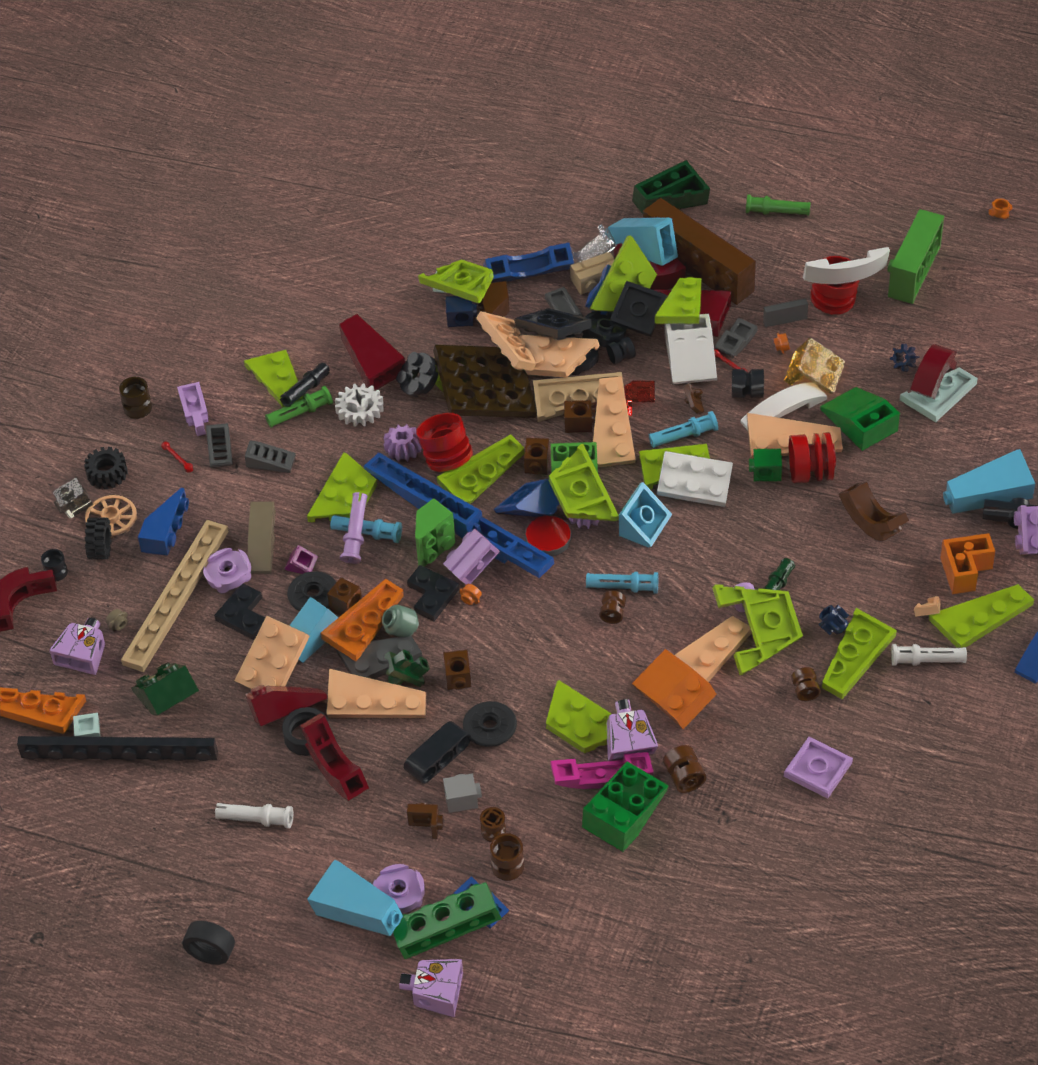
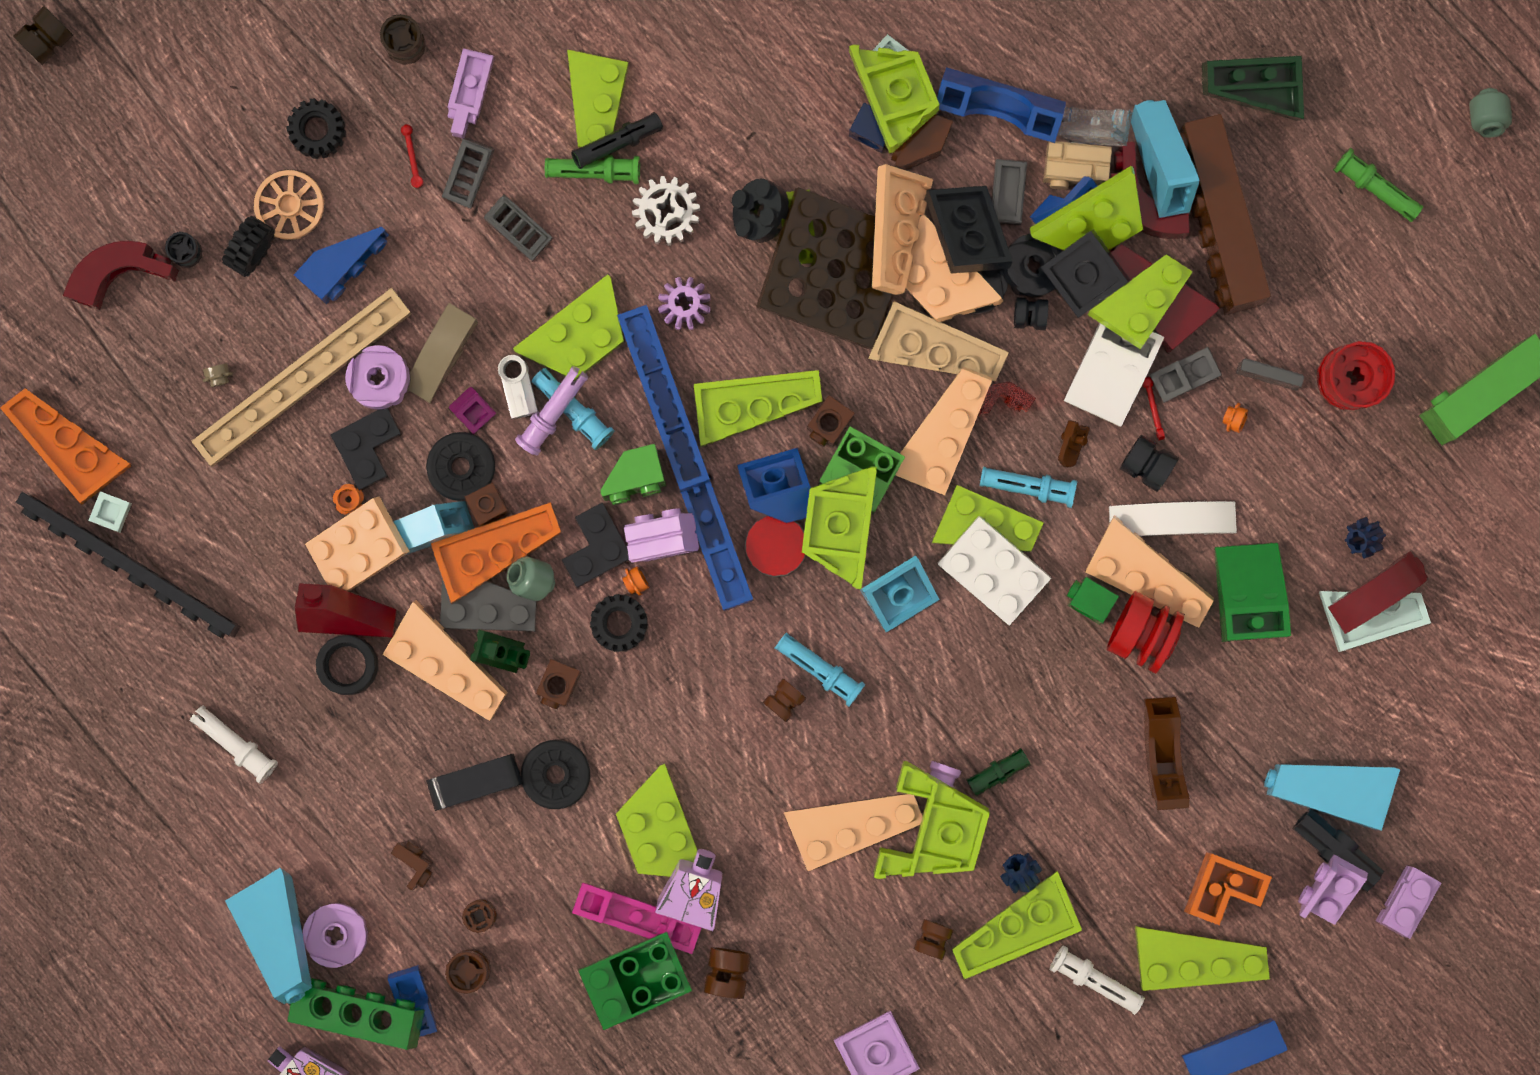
camera: 30 degrees right, 35 degrees up
(72, 498) = (251, 159): clear smoke brick -> none
(79, 647) = (156, 392): lavender torso -> none
(165, 688) = (220, 510): dark green slope -> none
(208, 942) = (94, 893): black tyre -> none
(244, 640) = (345, 491): none -> orange plate
(321, 530) = (518, 390): none -> white piece
(334, 765) = (352, 735): dark red arch -> none
(371, 354) = (724, 140): dark red slope -> none
(444, 442) = (723, 332): red wheel -> none
(461, 792) = (470, 853): light grey brick -> none
(471, 610) = (605, 609): none -> black tyre
(578, 416) = (910, 376): reddish brown brick -> none
(675, 688) = (781, 858): orange slope -> none
(813, 147) = (1490, 113): none -> sand green head
(816, 364) = (1249, 482): clear yellow bracket -> none
(845, 272) = (1337, 374): white slope -> none
(929, 608) = (1143, 917): light nougat tile -> none

